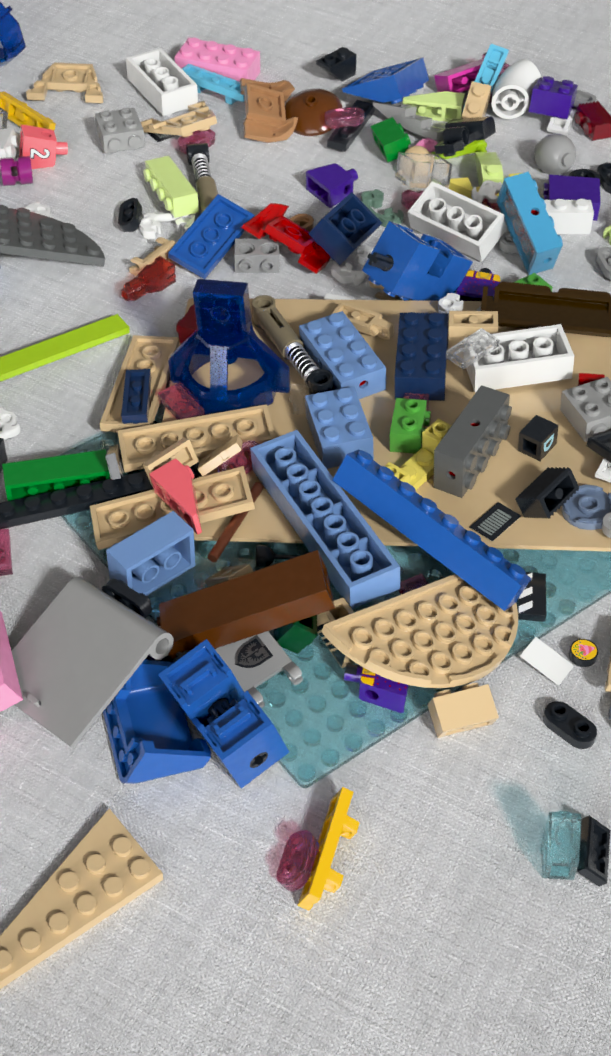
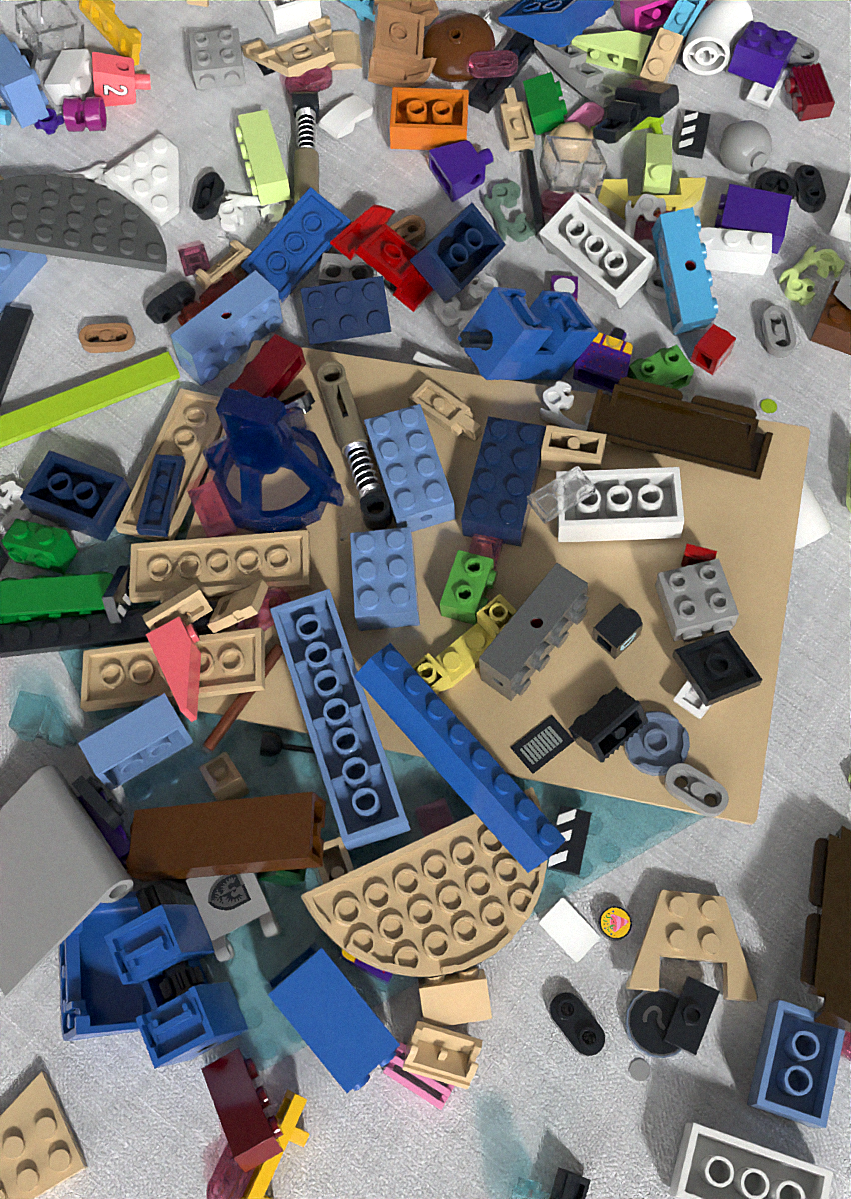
camera: 10 degrees right, 20 degrees up
(35, 441) = (39, 546): none -> green brick
(59, 562) = (41, 719): none -> clear light blue slope
(61, 407) = (76, 495): none -> dark blue brick
(63, 309) = (108, 337): none -> medium nougat plate
(79, 206) = (150, 179): none -> white plate
(112, 282) = (170, 302): none -> black plate
(123, 256) = (193, 259): none -> clear pink tile
(164, 290) = (227, 328): none -> medium blue brick
(224, 123) = (346, 50): none -> tan piece
(230, 160) = (343, 116): none -> white slope
(265, 268) = (345, 310): none -> dark blue brick
(298, 152) = (427, 117): none -> orange brick
(299, 802) = (243, 1109): none -> dark red brick
(360, 728) = (332, 1018): none -> blue slope
(370, 154) = (516, 122): none -> tan hinge
(394, 192) = (534, 191): none -> black bar
(447, 772) = (446, 1091): none -> bright pink tile
(462, 748) = (442, 1054): none -> tan hinge
(511, 153) = (693, 134): none -> black tile
(563, 275) = (713, 349): none -> red brick

